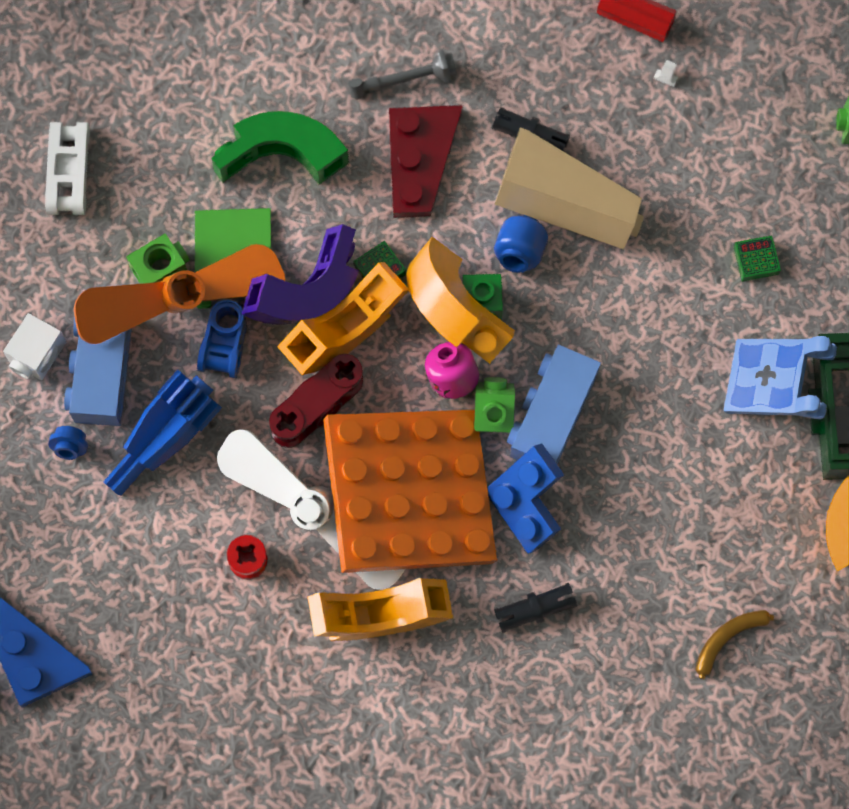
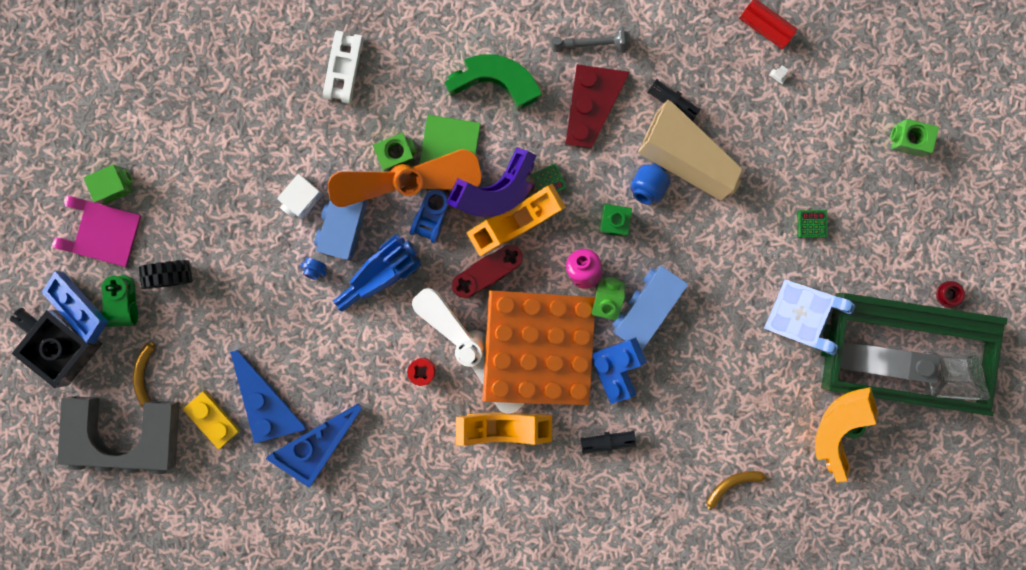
camera: 10 degrees right, 15 degrees up
(103, 705) = (309, 453): none -> blue wing
(449, 307) = (589, 222): light orange arch -> none

